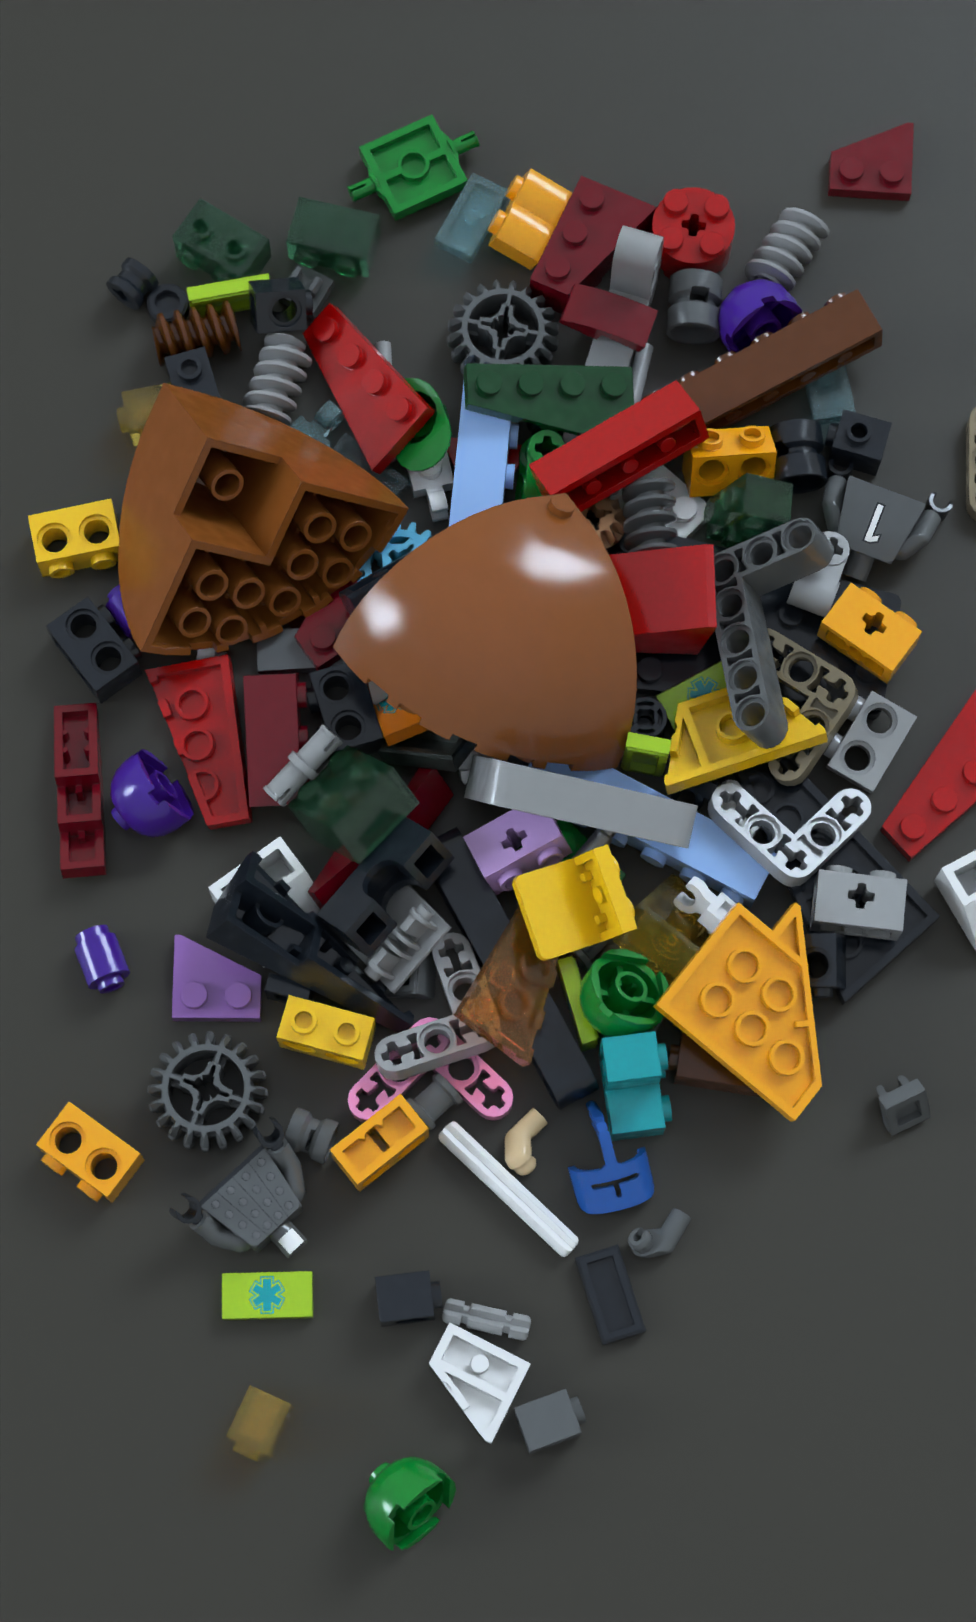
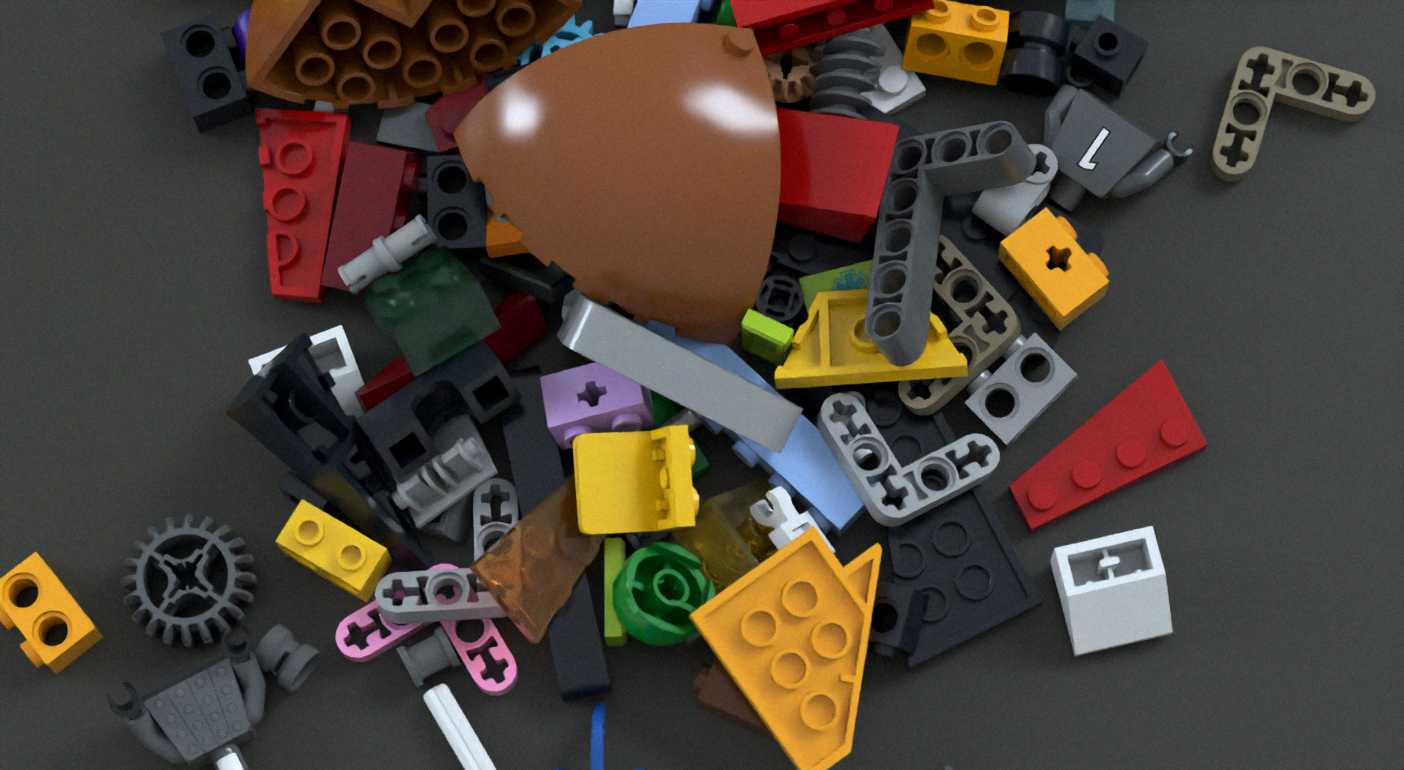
camera: 20 degrees right, 0 degrees up
(79, 790) = (148, 220): dark red slope -> none
(101, 959) = (117, 408): dark purple brick -> none
(147, 798) = (216, 247): dark purple cylinder -> none
(212, 986) = (229, 469): medium lavender wing -> none
(380, 1142) = (354, 685): light orange brick -> none
(518, 1142) = (508, 726): tan arm -> none
(631, 1086) = (647, 691): teal brick -> none
(747, 509) = (957, 97): clear green brick -> none
(837, 912) = (926, 555): light grey brick -> none

